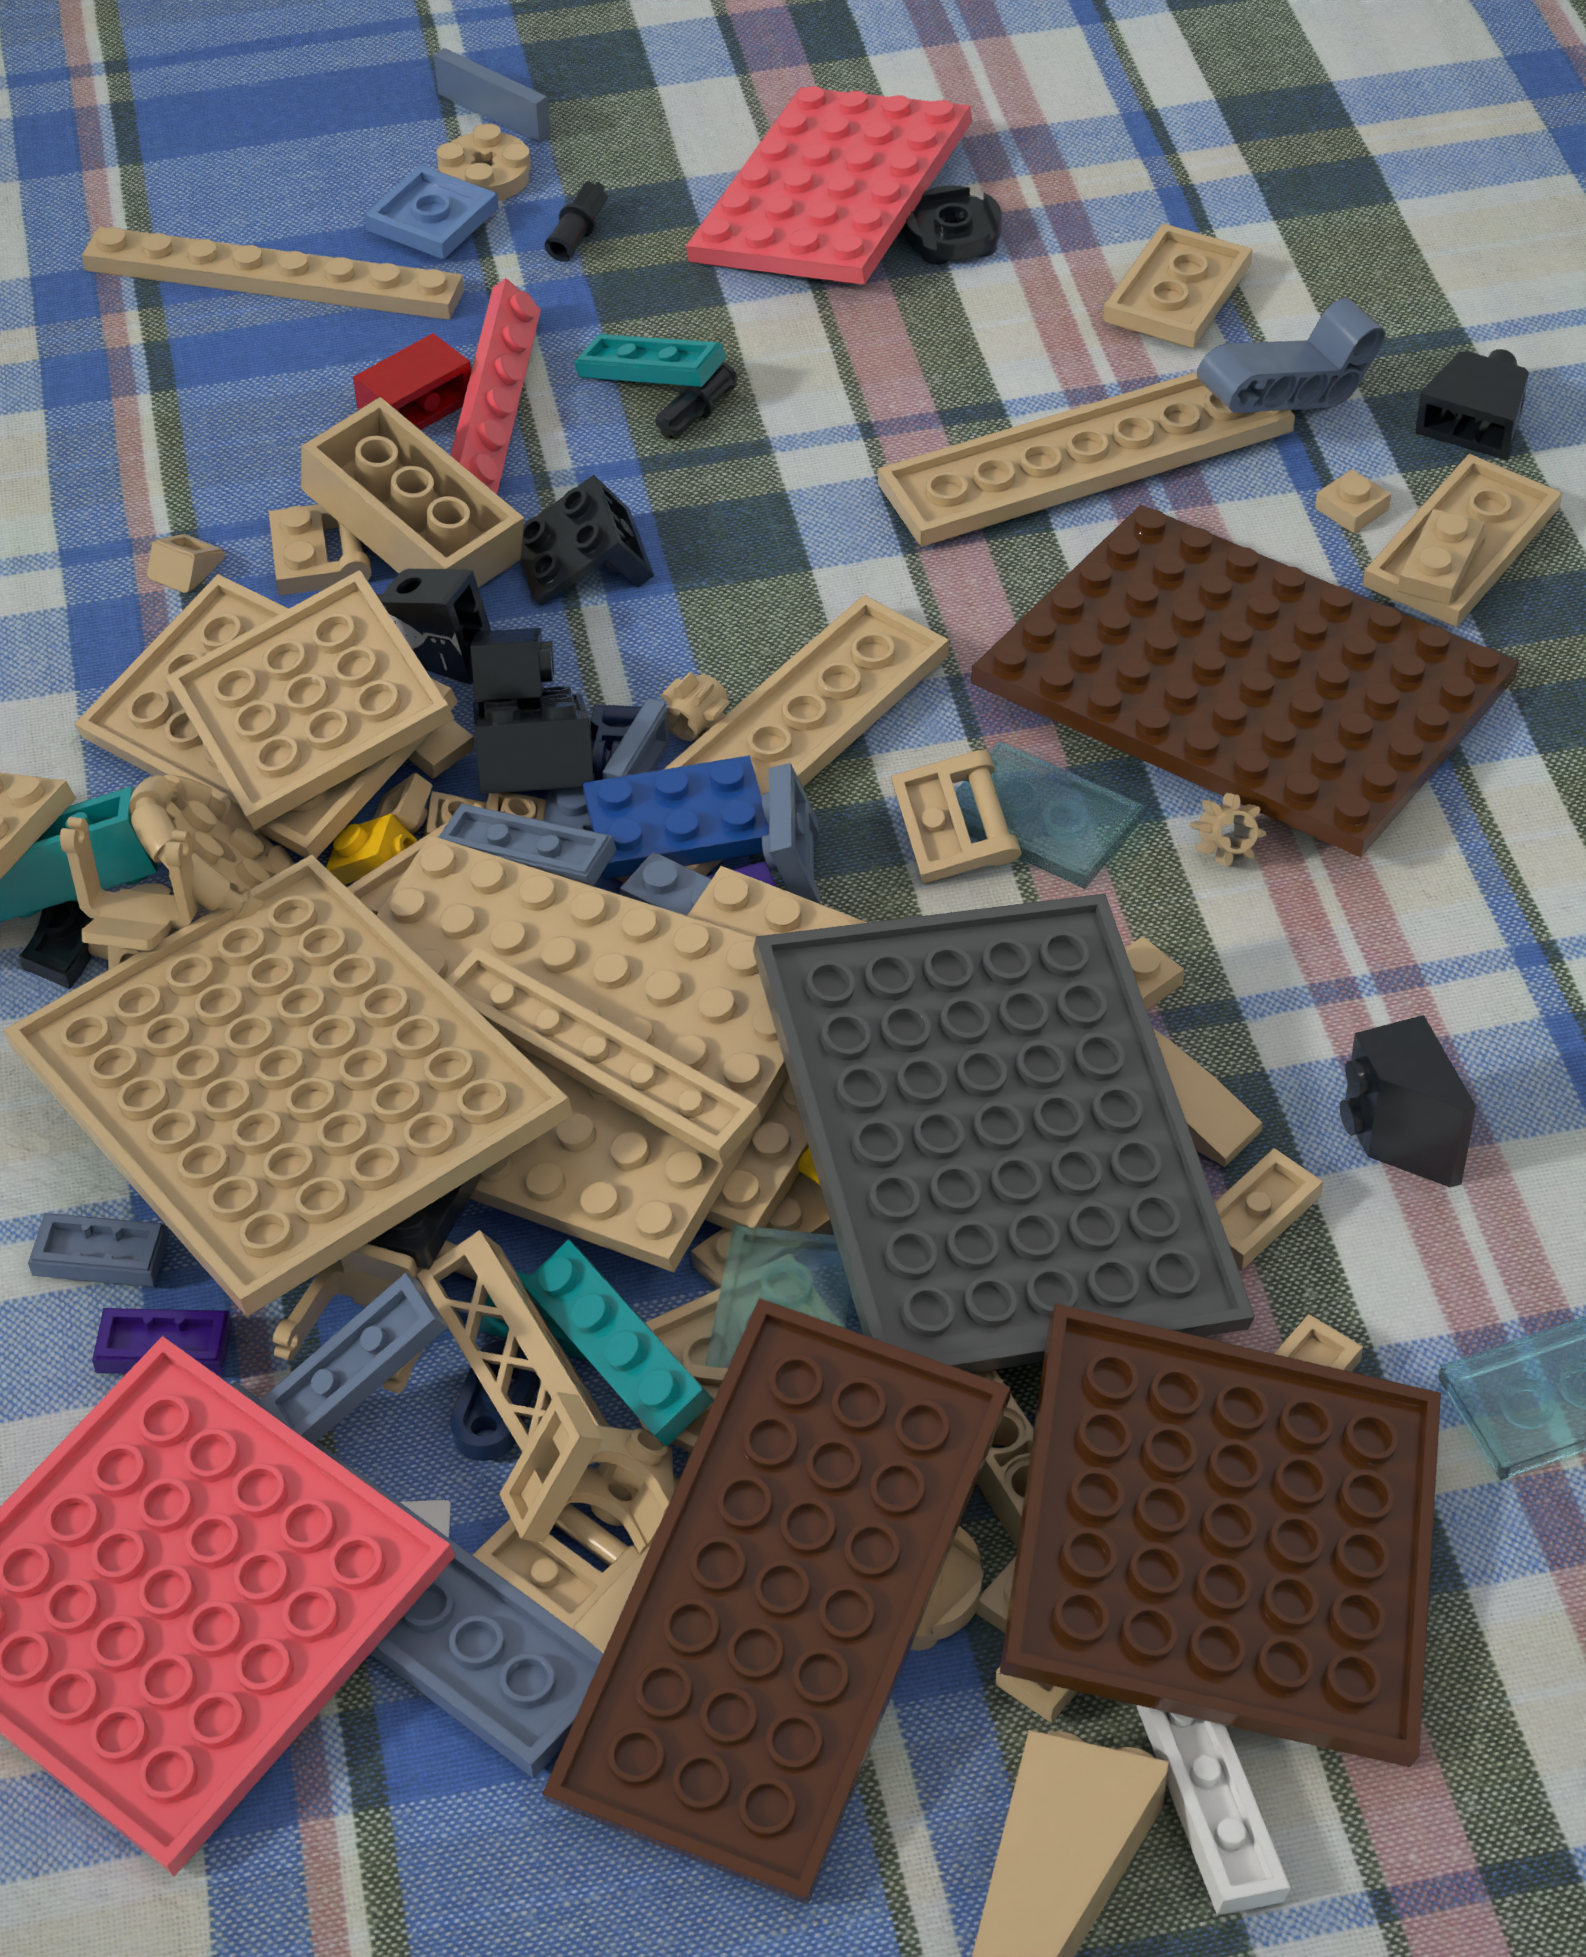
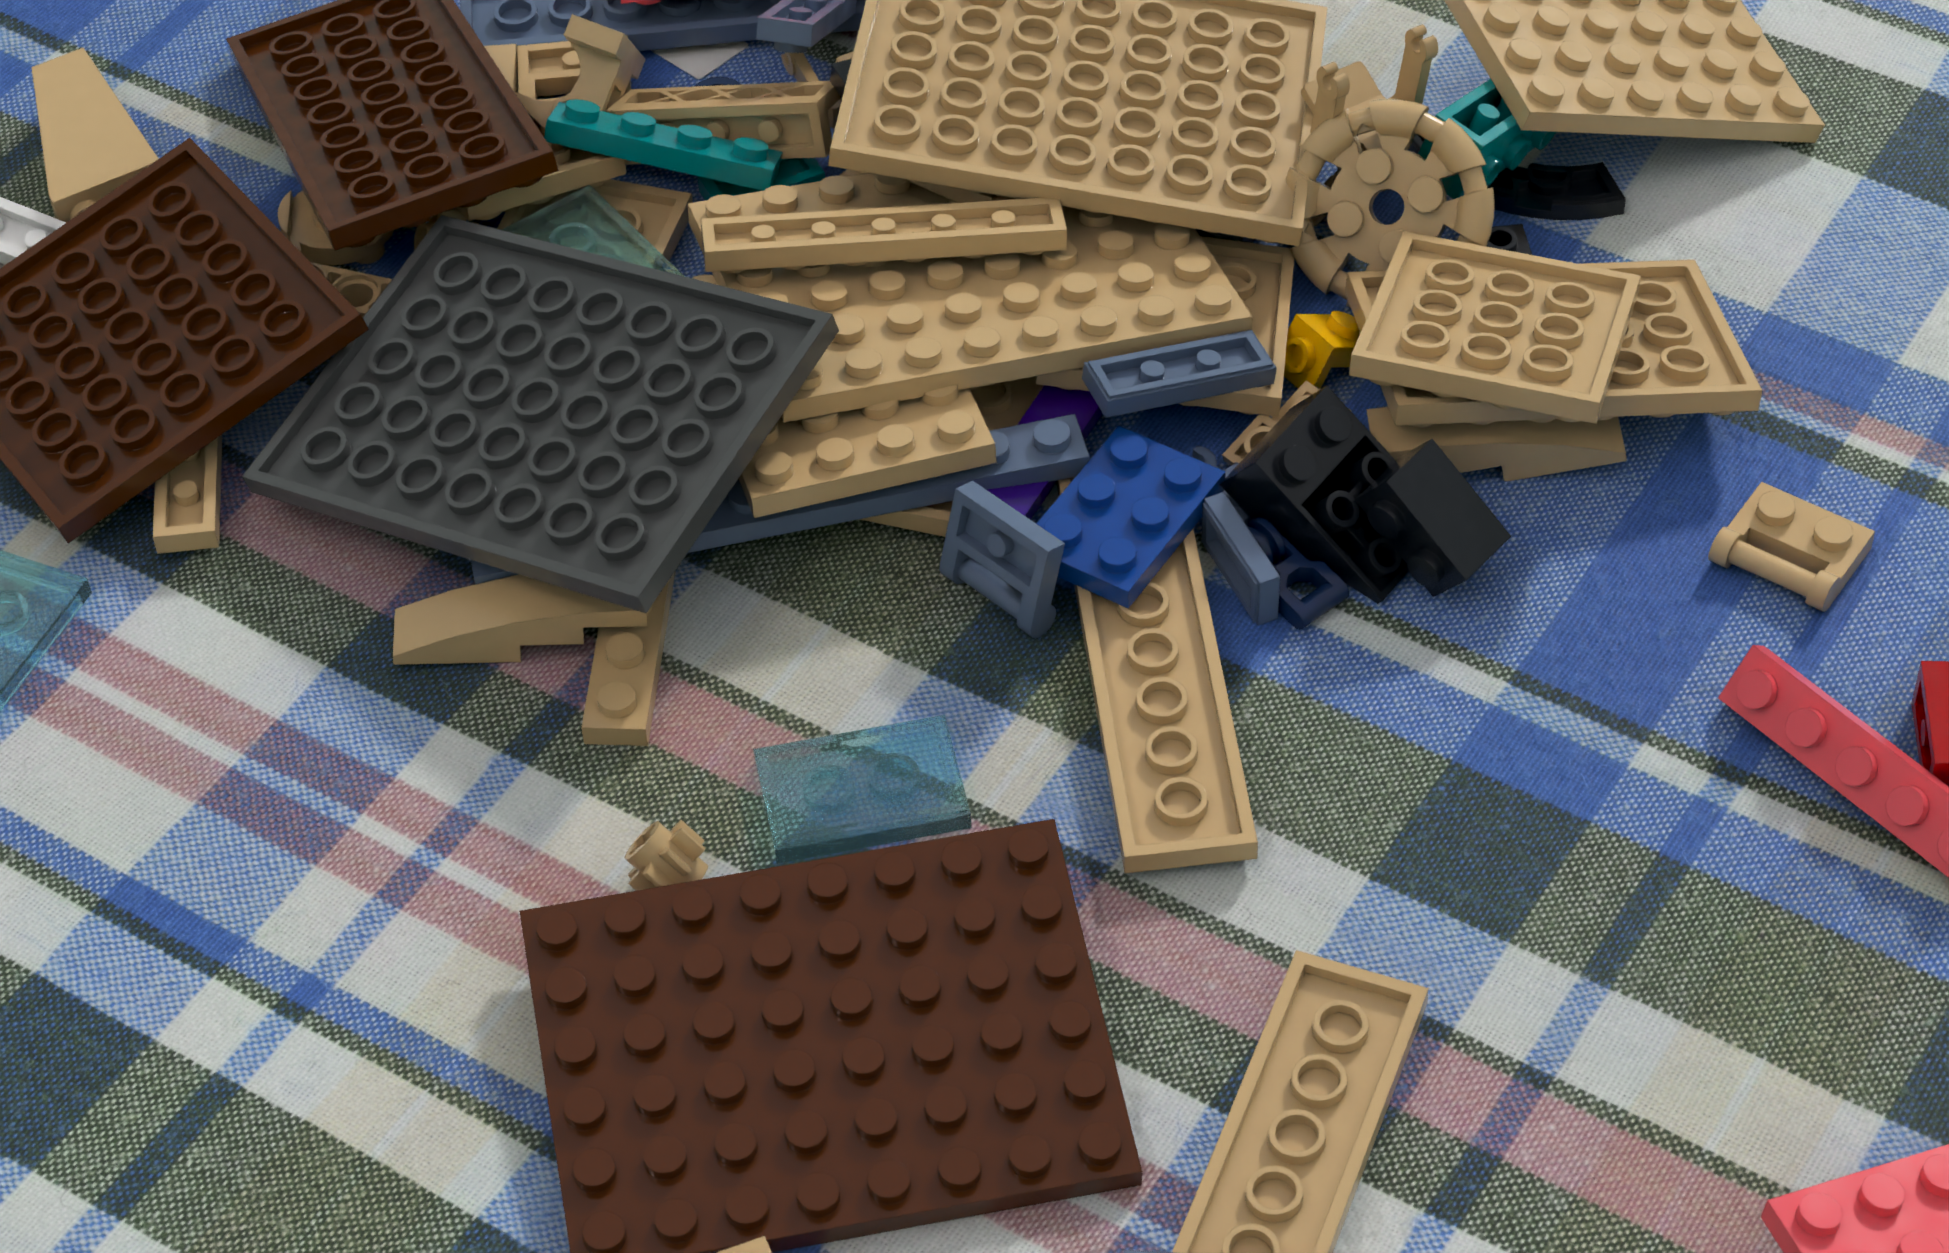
camera: 135 degrees right, 0 degrees up
(182, 561) = (1873, 454): tan slope -> none
(407, 802) = (1351, 390): tan plate -> none
(409, 496) = (1736, 579): tan brick -> none
(438, 617) = (1560, 518): black torso -> none
(578, 536) = (1568, 713): black bracket -> none
(650, 360) = (1811, 936): teal tile -> none
(694, 705) = (1251, 627): tan gear -> none
(695, 402) = (1717, 949): black axle -> none
(937, 823) = (911, 678): tan plate -> none
(1265, 1204) = (331, 589): tan plate -> none
(1408, 1101) = (264, 706): black slope -> none

